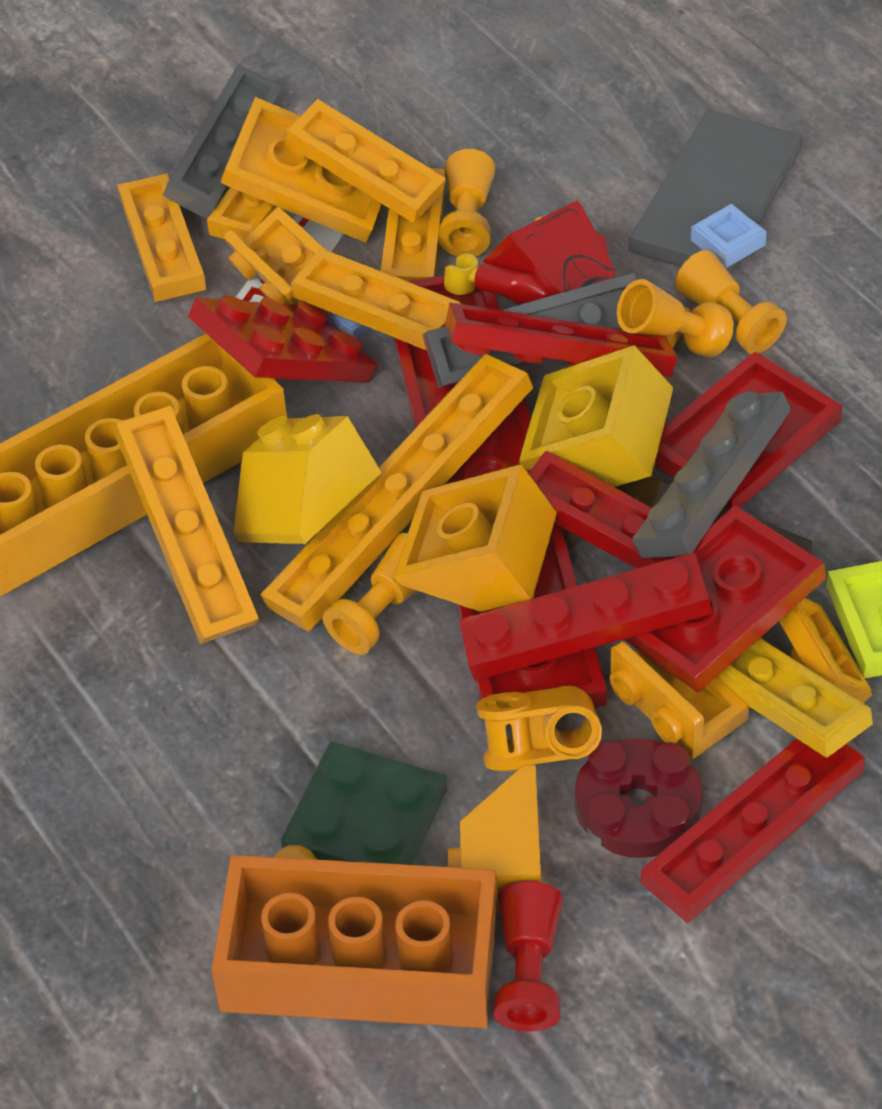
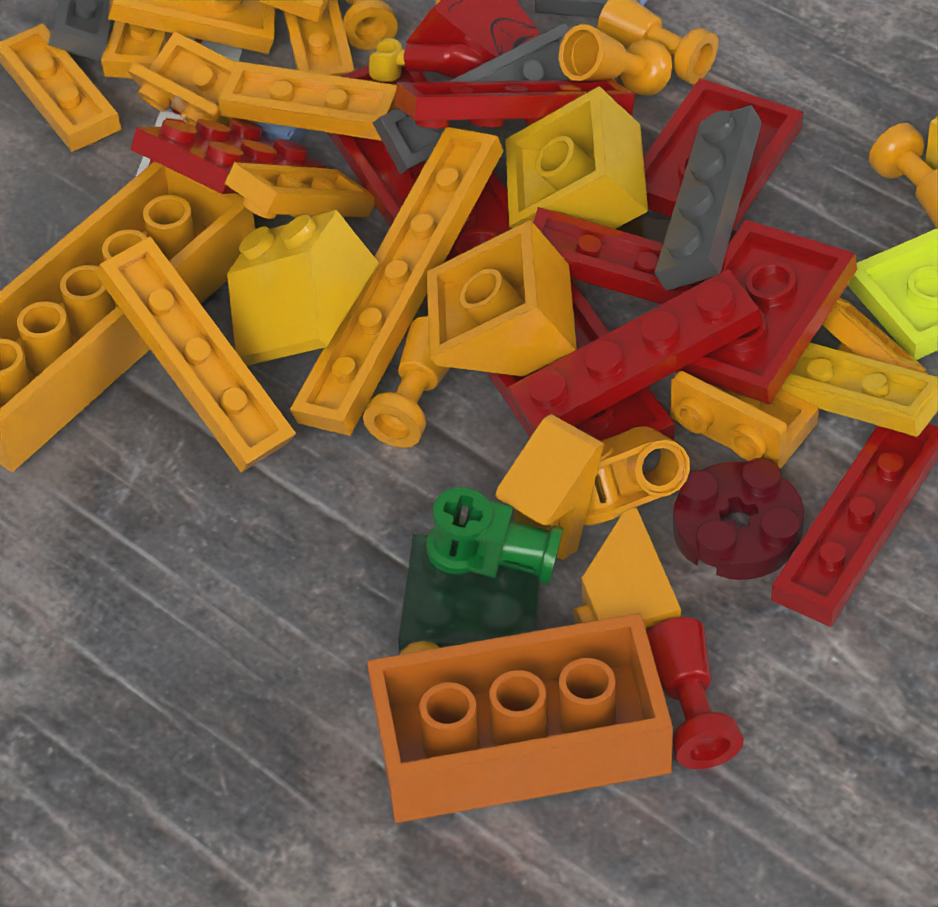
camera: 15 degrees left, 0 degrees up
(334, 387) = (298, 191): none -> light orange plate
(388, 763) = (487, 538): none -> green connector
(462, 726) = (554, 481): none -> light orange slope

